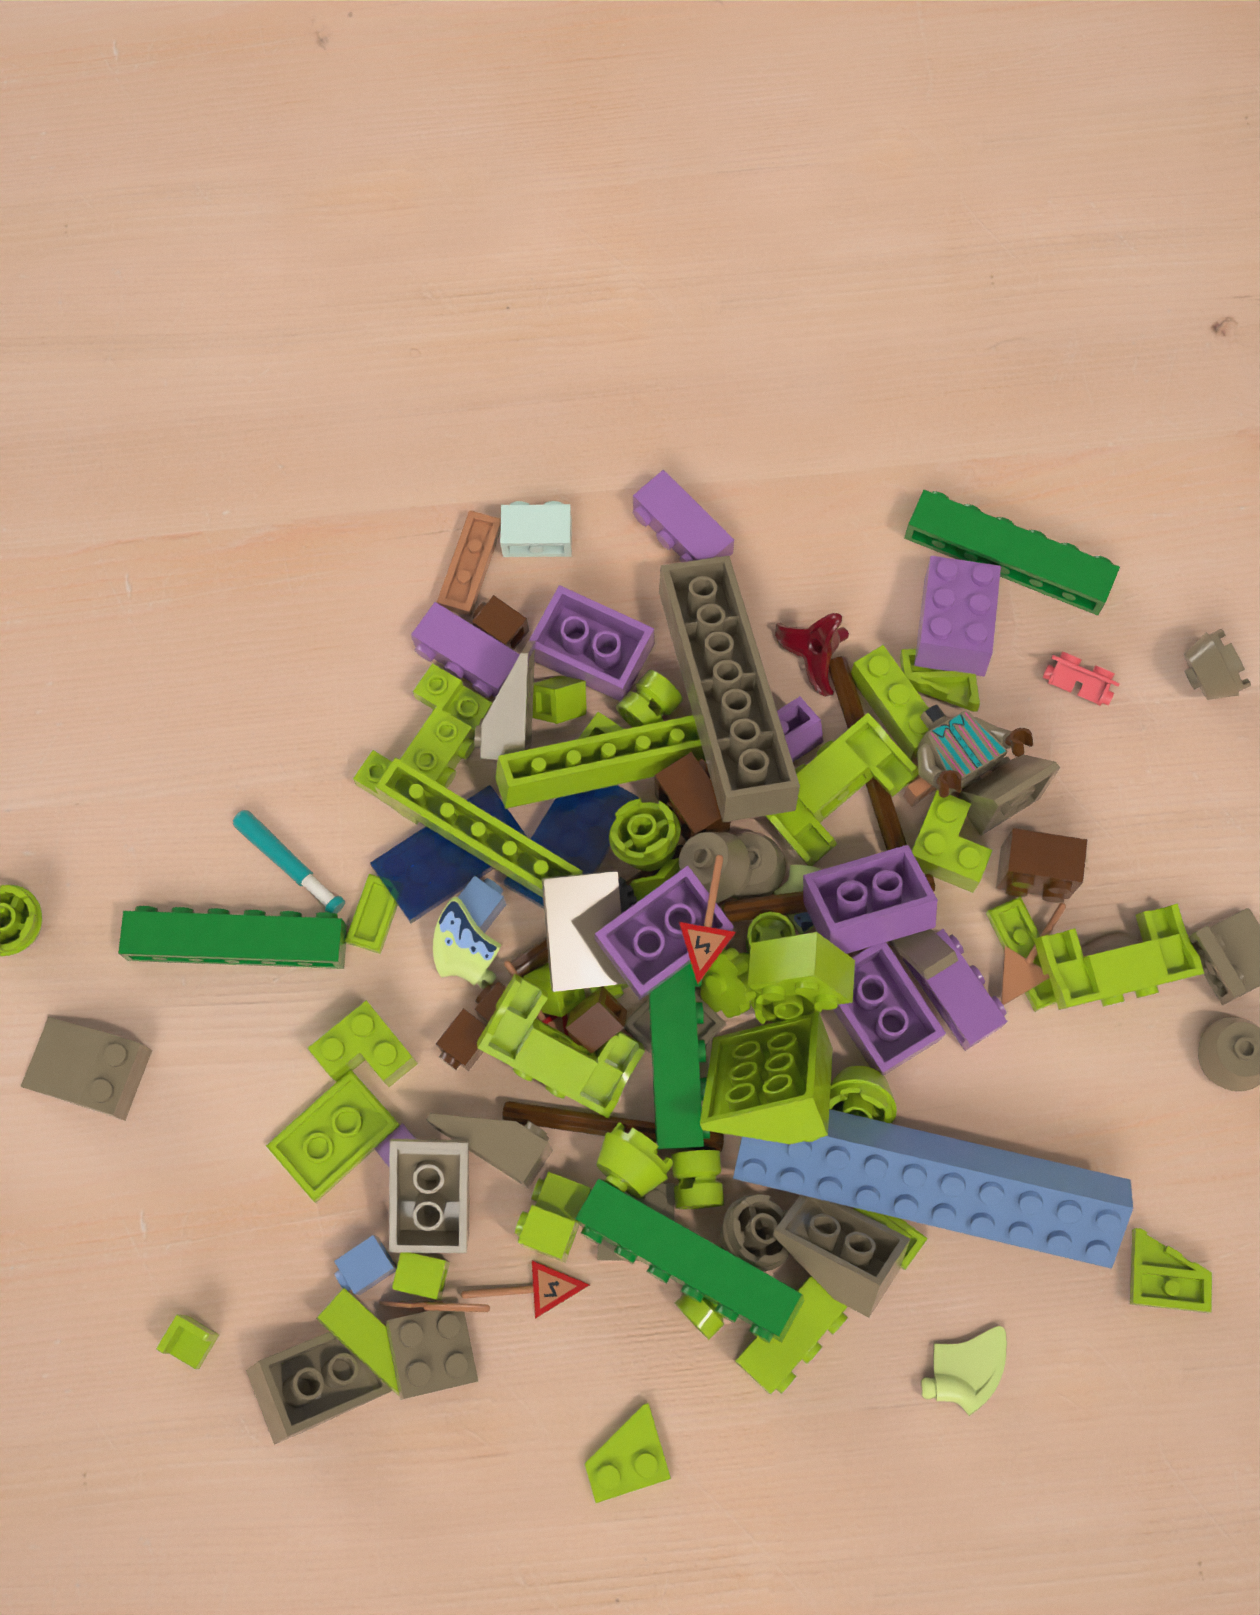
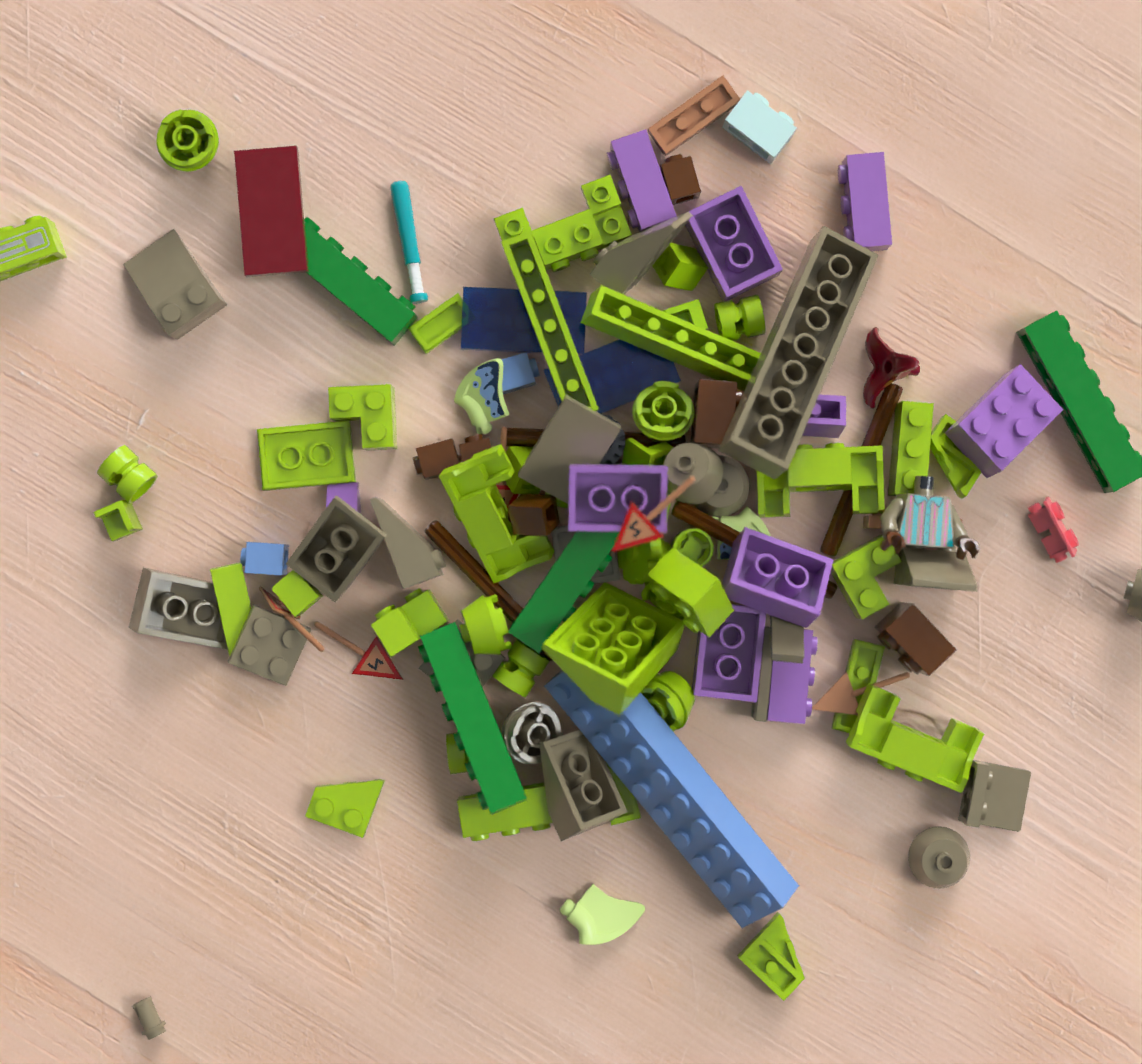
camera: 30 degrees right, 15 degrees up
(134, 925) = (271, 211): none -> dark red tile
(165, 1287) = (125, 472): none -> lime wheel
(953, 1040) = (760, 708): none -> dark tan tile

